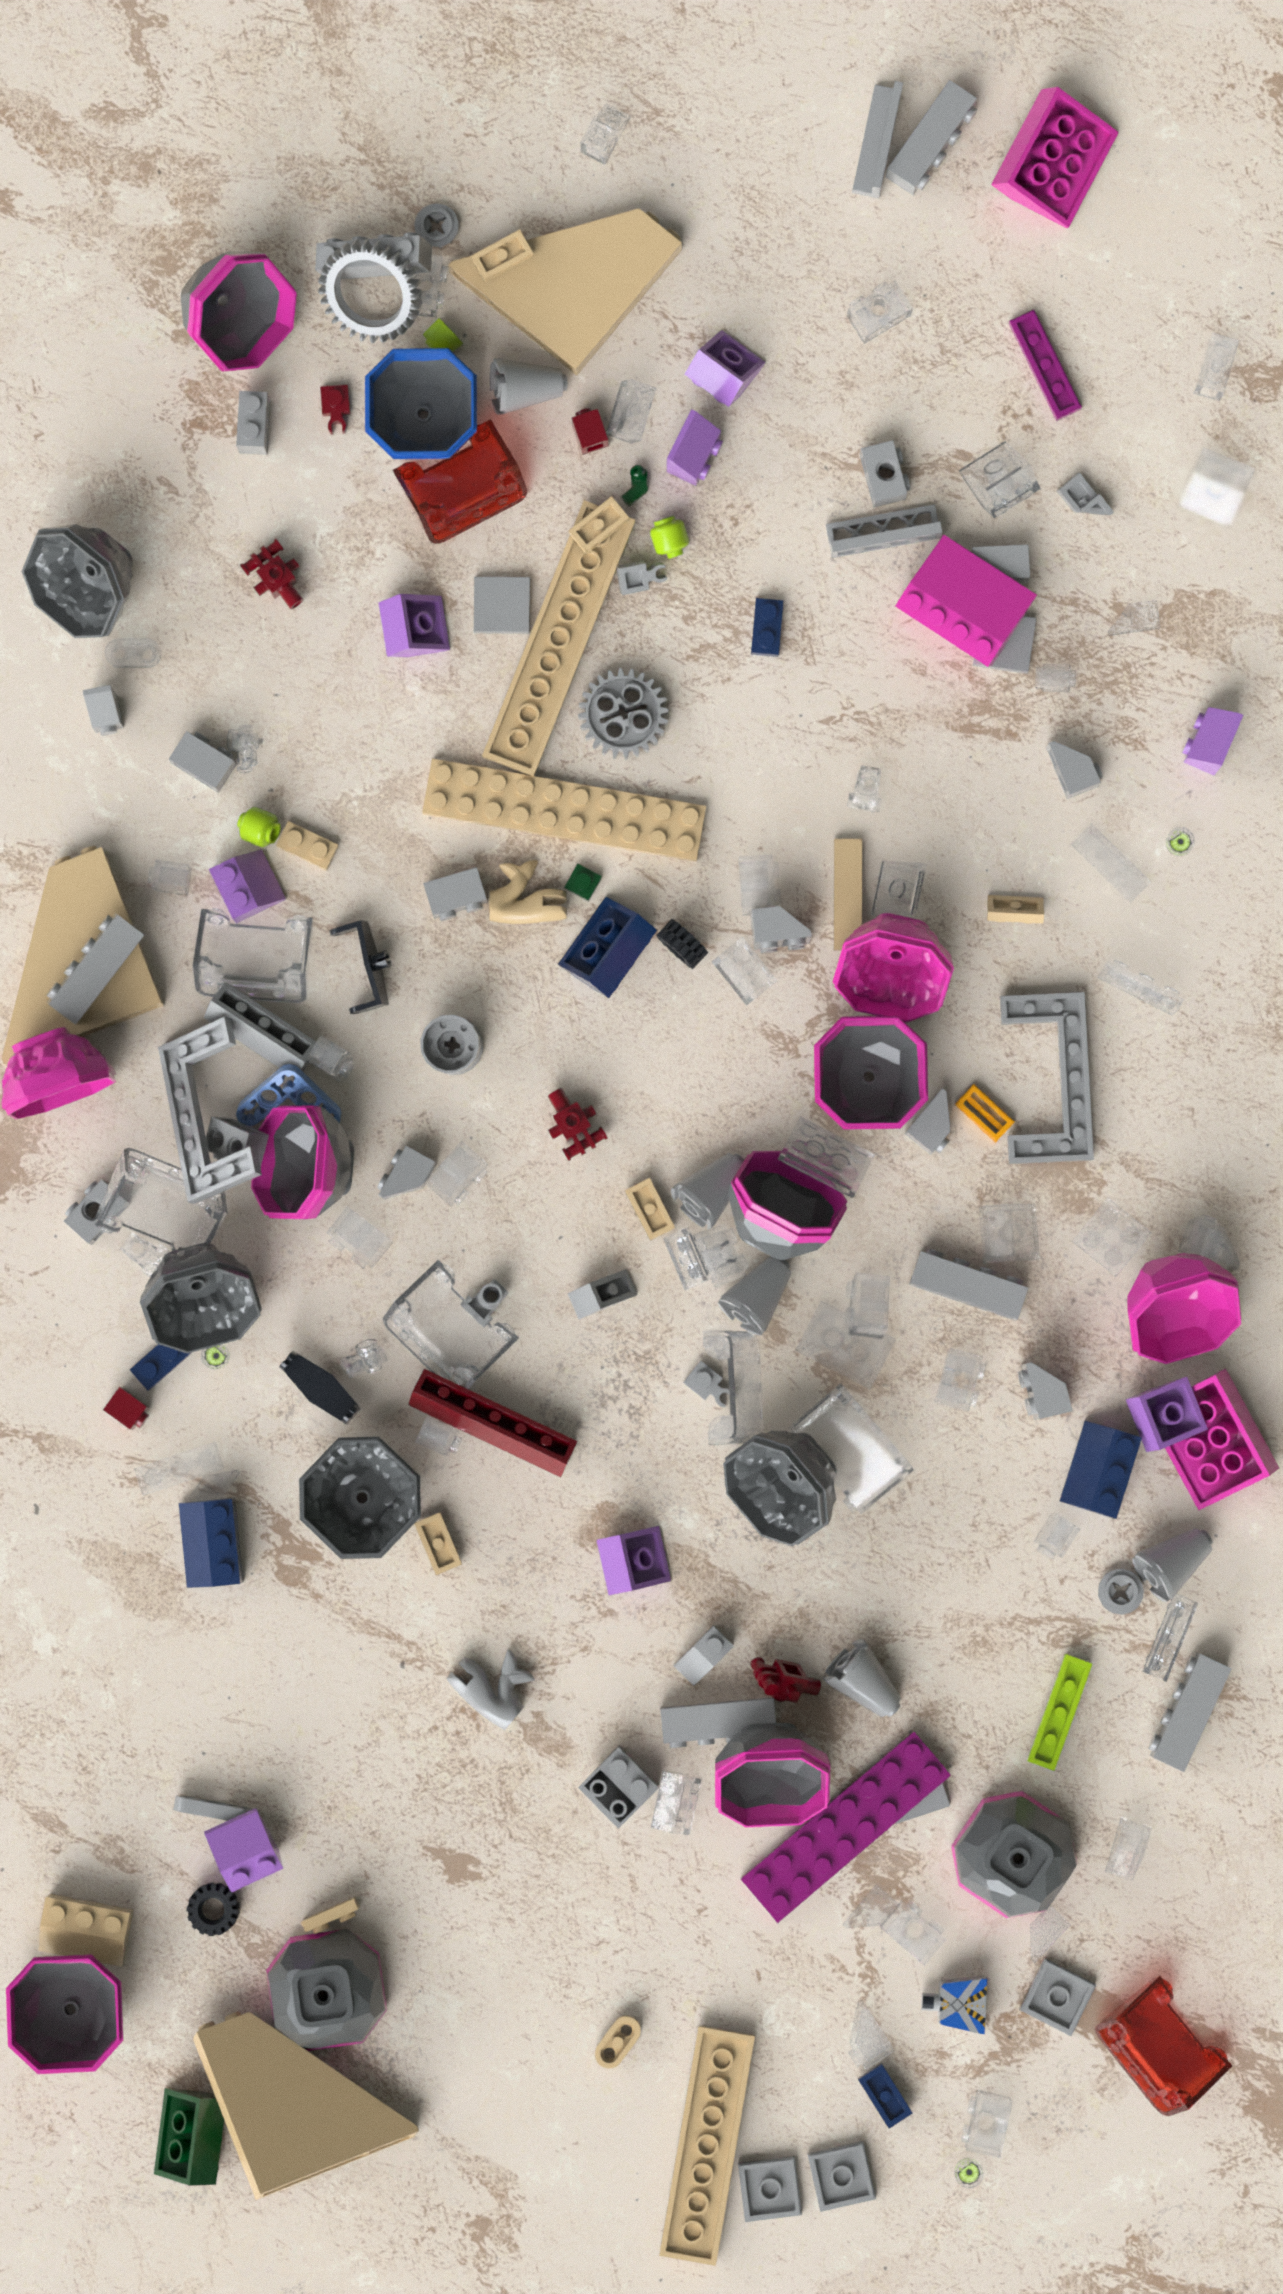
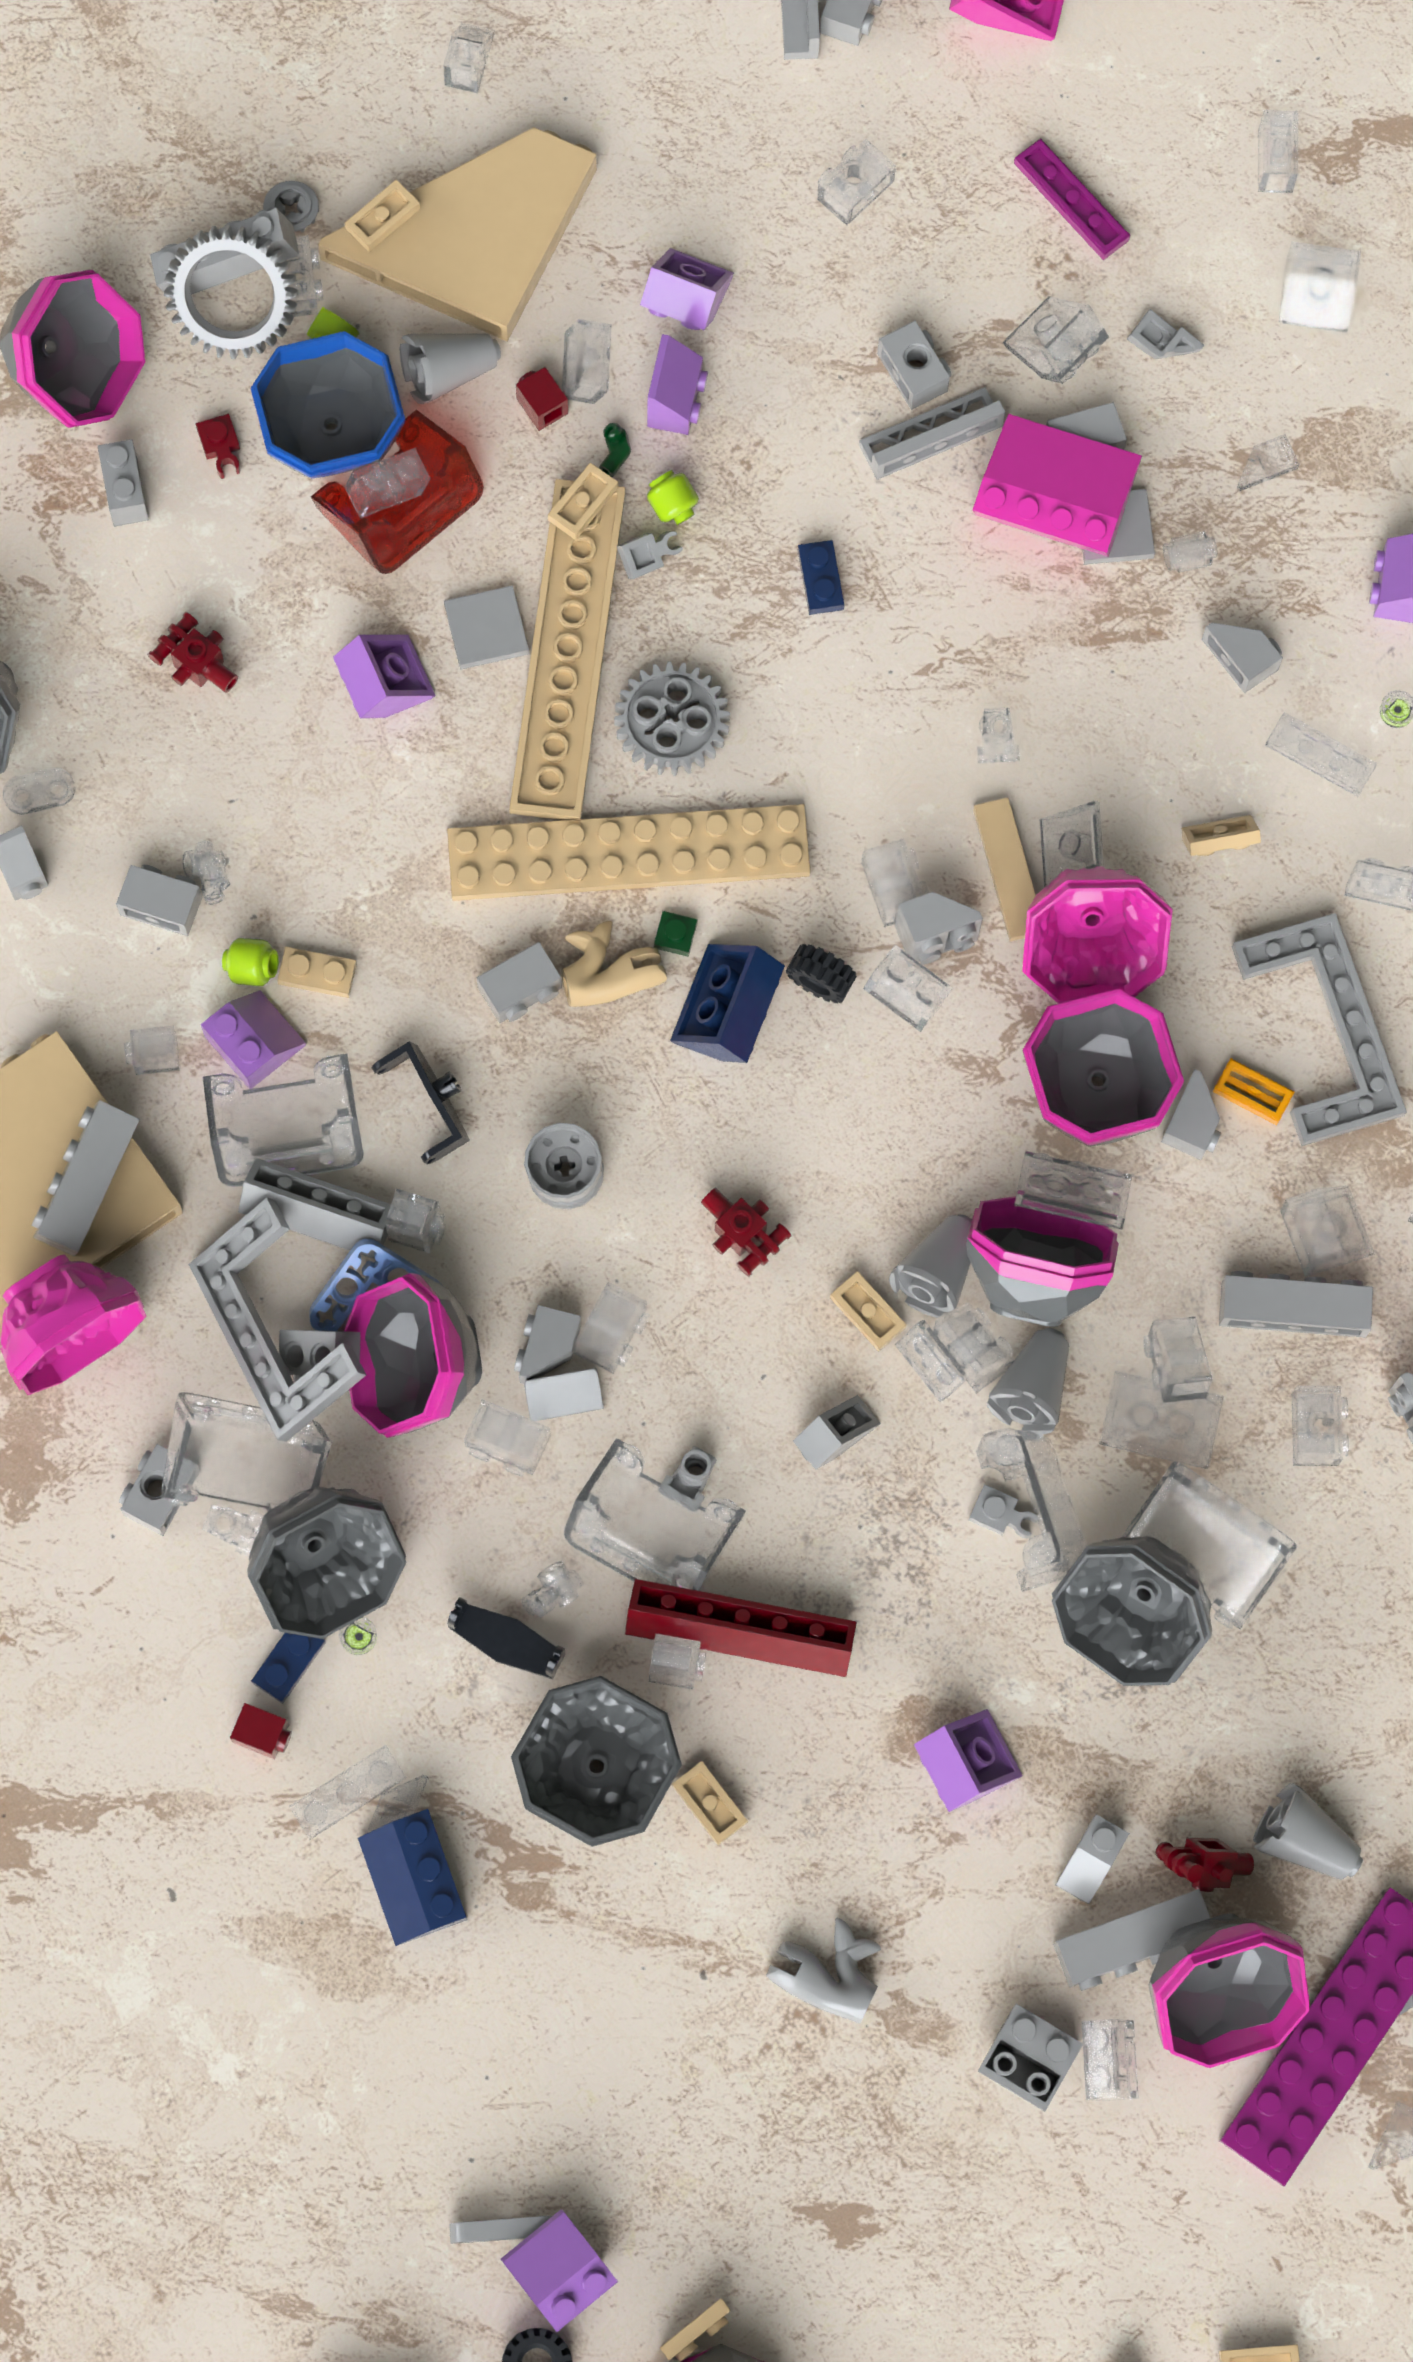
camera: 20 degrees left, 10 degrees down
(409, 1215) = (563, 1394): none -> slope
(453, 474) = (387, 482): none -> clear brick

